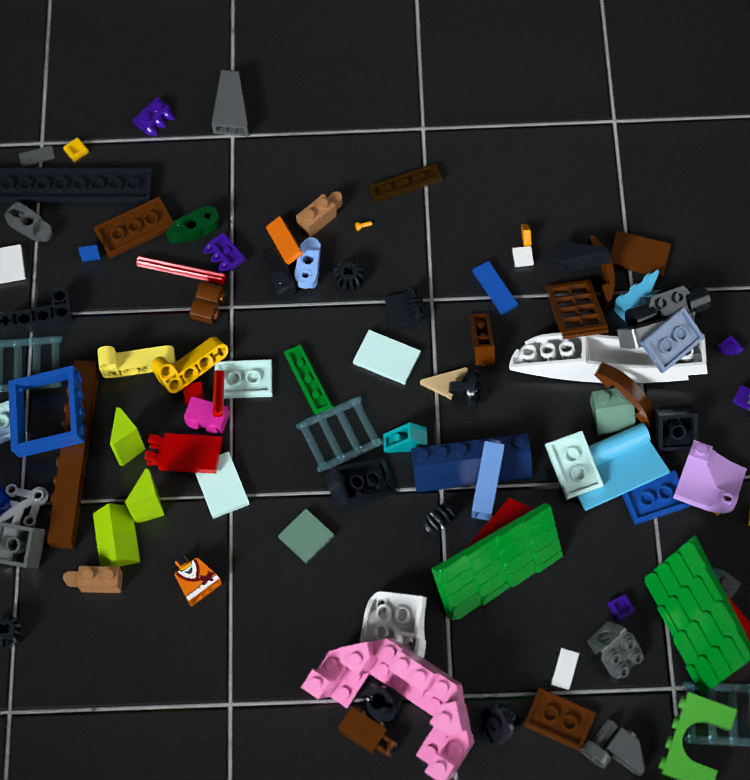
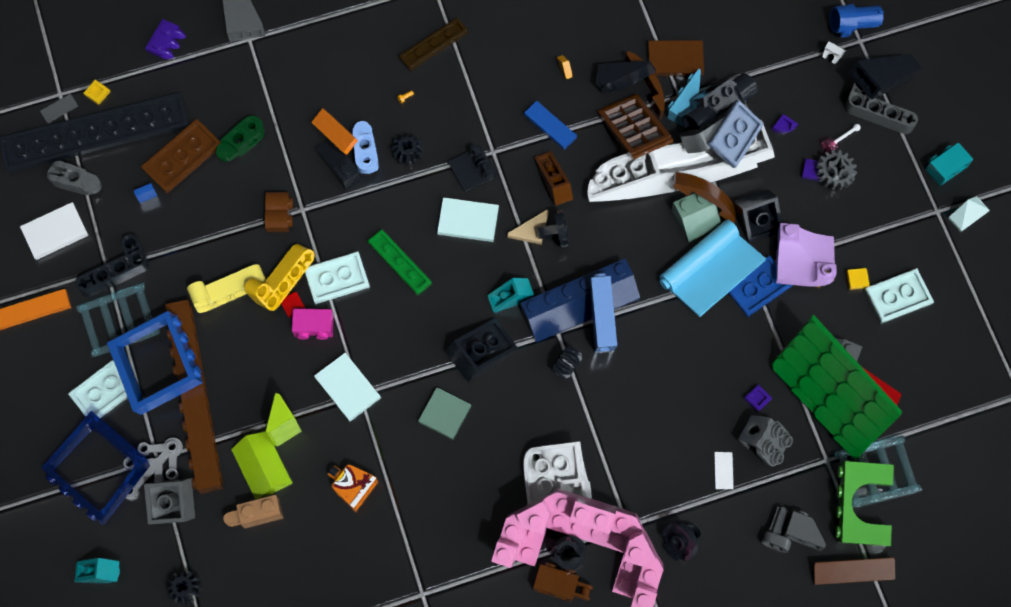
camera: 20 degrees left, 5 degrees up
(125, 438) = (243, 367): lime slope -> none
(180, 269) = (241, 186): axle -> none
(185, 453) = (303, 365): red tile -> none
(218, 393) = (319, 299): red axle -> none
(225, 252) = (279, 157): dark purple plate -> none
(319, 213) = (360, 96): medium nougat brick -> none
(340, 457) = (453, 329): clear light blue bar -> none
(499, 557) = (638, 379): green piece -> none
(522, 256) = (567, 88): white tile -> none
(559, 719) = (733, 519): reddish brown tile -> none
(574, 465) = (677, 277): light aqua tile -> none

